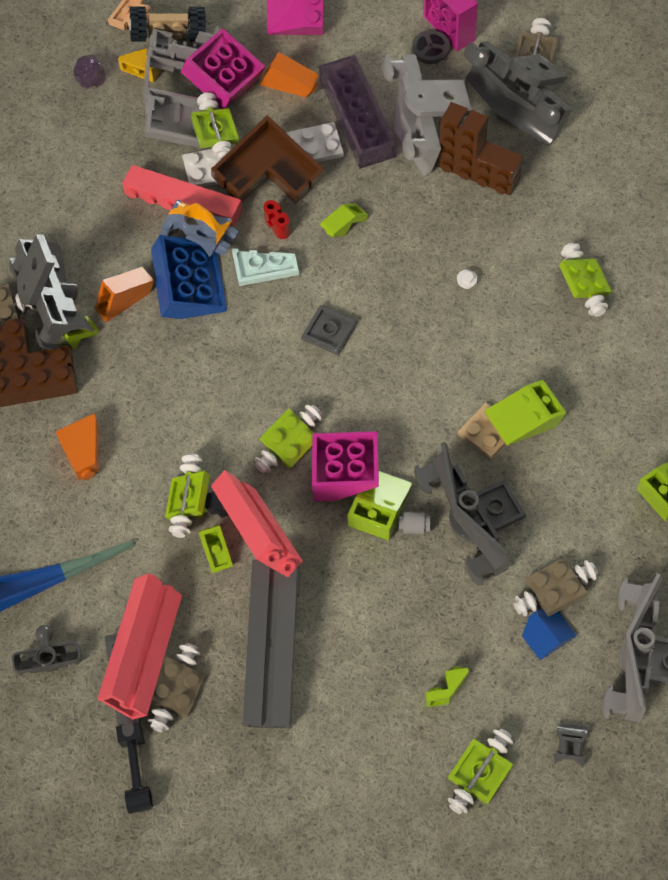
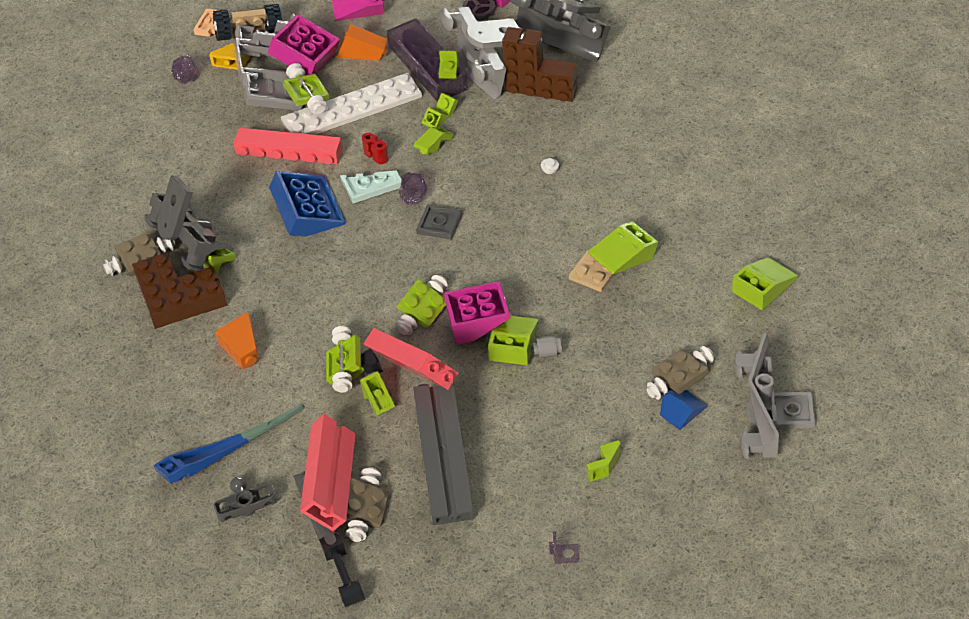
camera: 10 degrees left, 15 degrees down
(122, 292) = (250, 222): orange slope -> none
(207, 231) = (317, 162): sand blue hips -> none
(270, 154) = (357, 99): reddish brown piece -> none
(307, 282) = (412, 188): none -> clear purple hair
(357, 185) = (442, 111): none -> lime slope
(370, 792) = (558, 549): none -> bracket
(378, 127) = (448, 64): none -> lime slope
(471, 513) = (594, 329): dark grey piece -> none
(480, 771) = (648, 517): lime plate -> none
(571, 734) = (721, 477): dark grey piece -> none
(585, 279) = (651, 148): lime plate -> none

